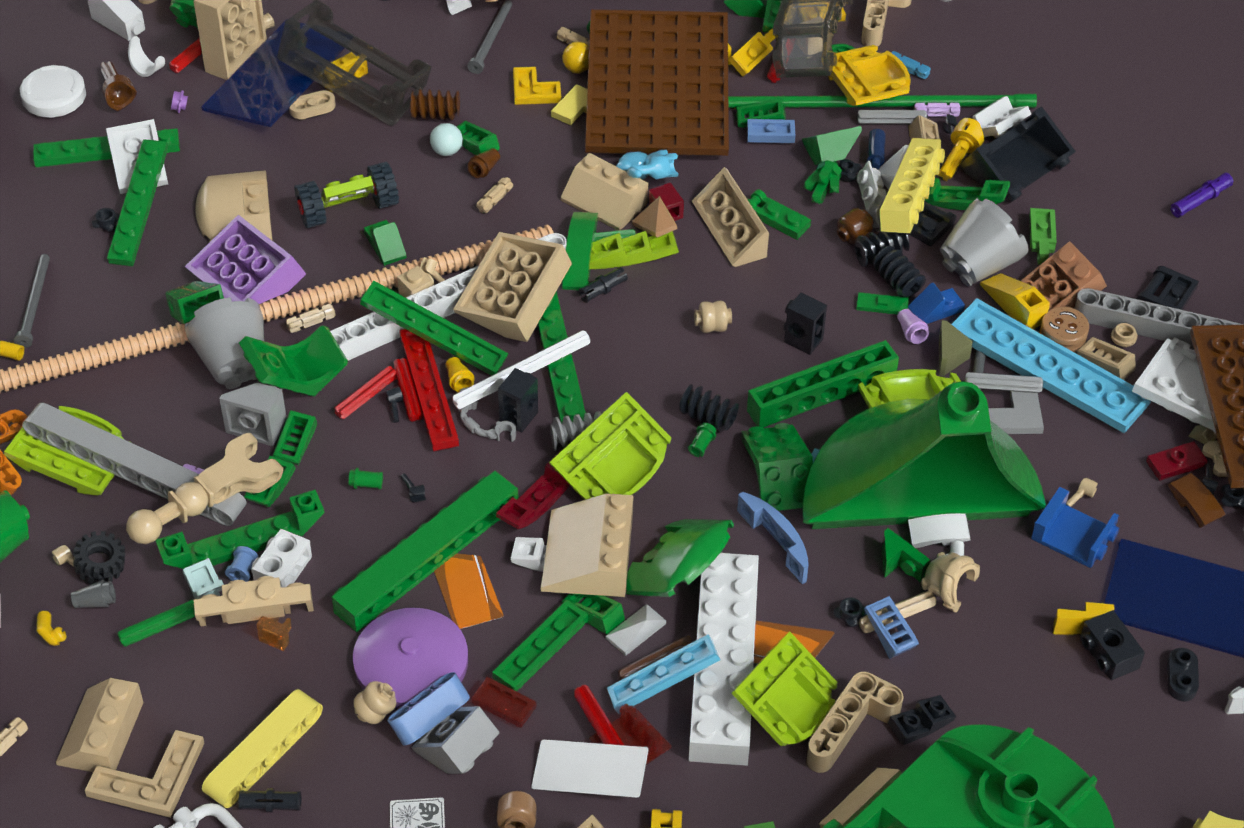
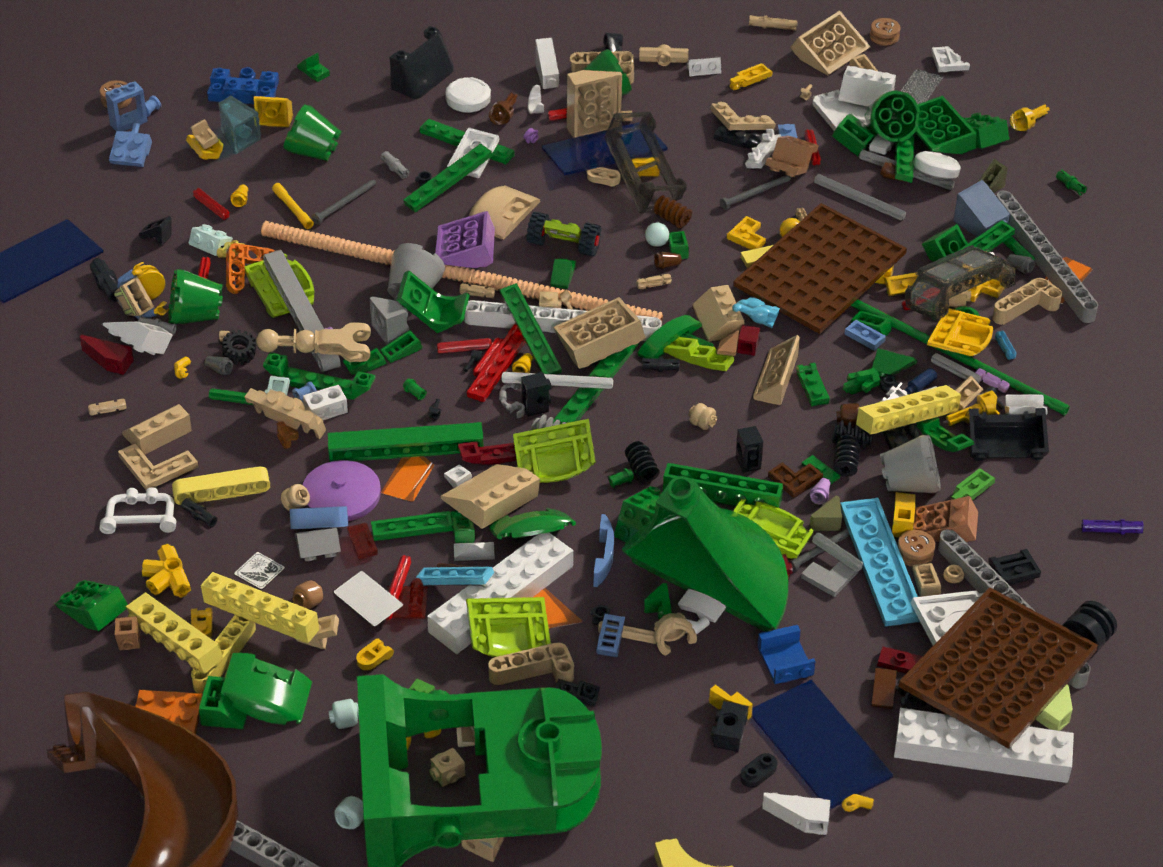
camera: 40 degrees right, 5 degrees down
(51, 221) = (395, 164): none -> light grey pin
(190, 297) = (427, 241): green torso -> none
(869, 333) = (794, 482): none -> reddish brown tile
(936, 305) = (848, 489): blue slope -> none
(1086, 487) = (822, 639): tan hand -> none

